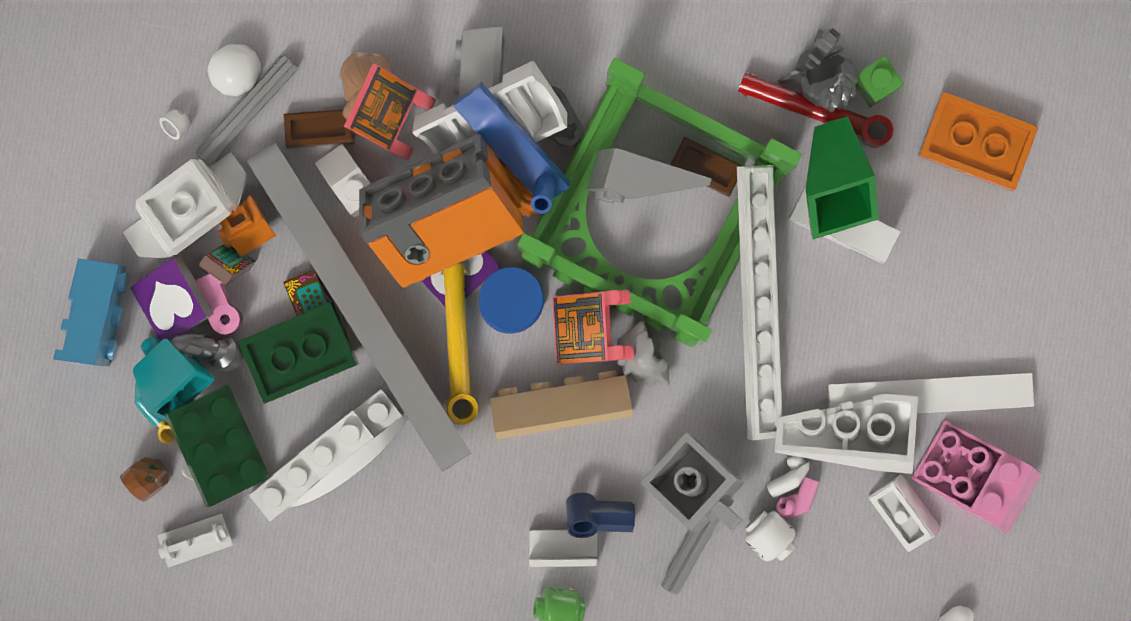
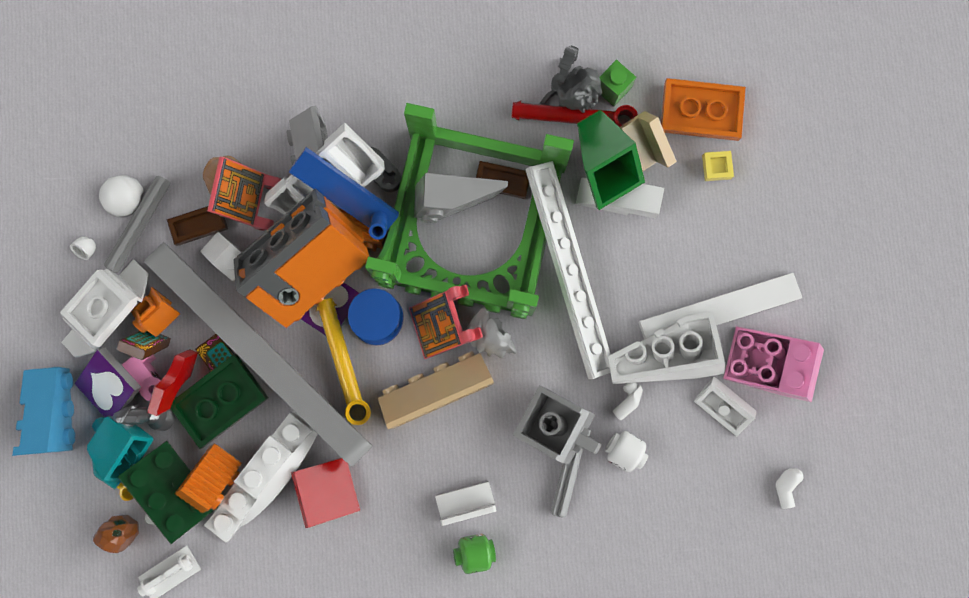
camera: 15 degrees left, 5 degrees down
(251, 317) = (167, 388): none -> red tile
(269, 443) = (209, 478): none -> orange brick
(401, 492) = (325, 492): none -> tile
(589, 516) = (480, 471): dark blue piece -> none
(800, 502) = (642, 419): bright pink arm -> none
(895, 167) = (650, 140): none -> tan panel
(976, 217) = (717, 166): none -> light yellow plate

